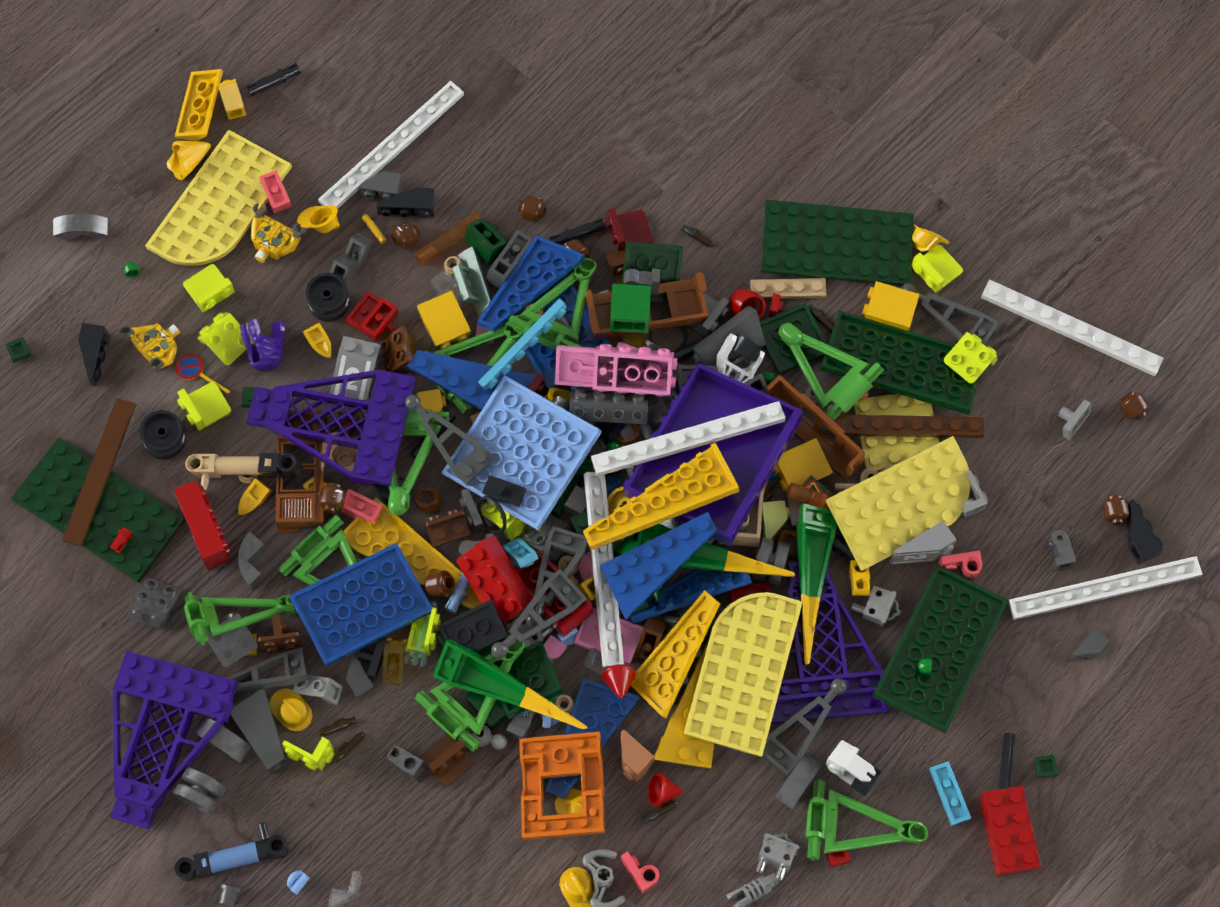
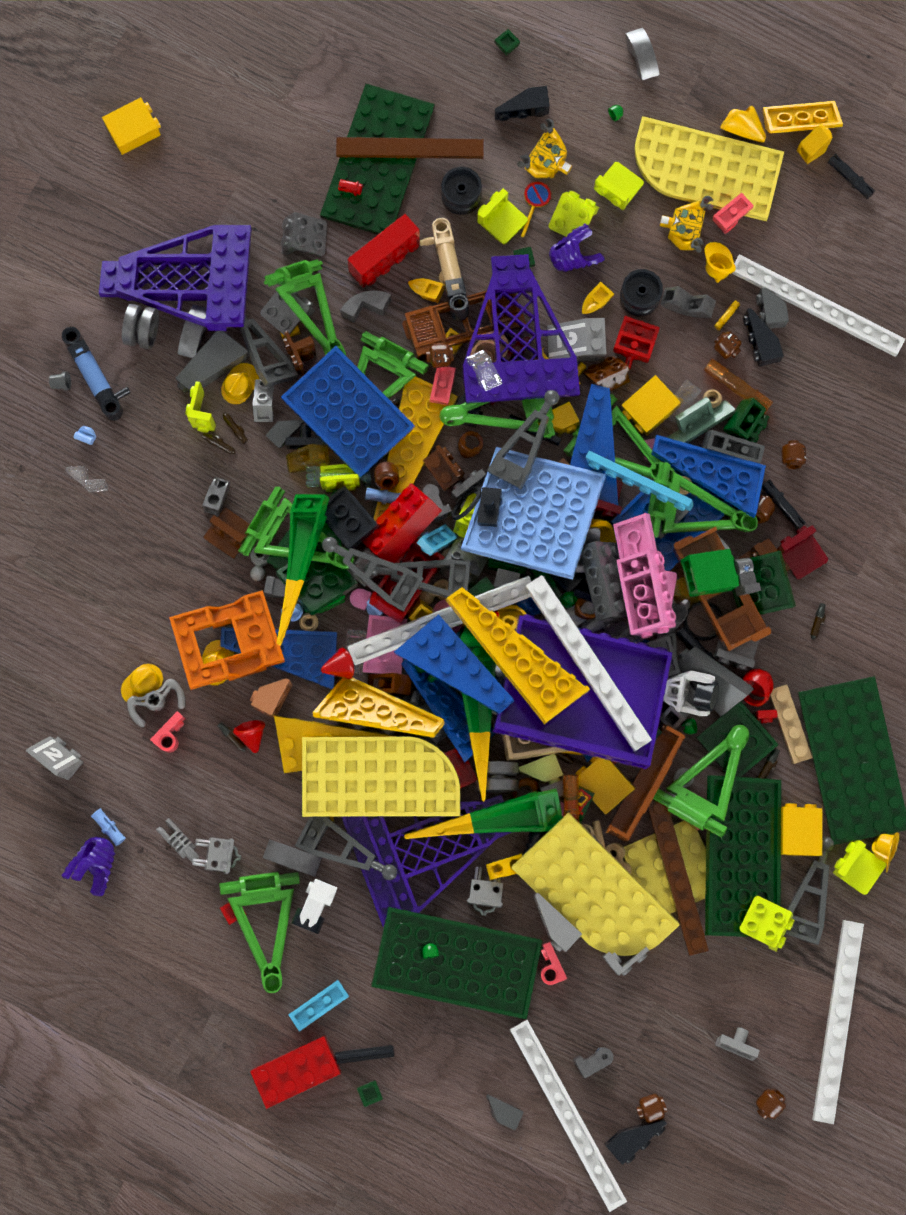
camera: 75 degrees right, 10 degrees up
(367, 453) = (484, 370): none -> clear slope

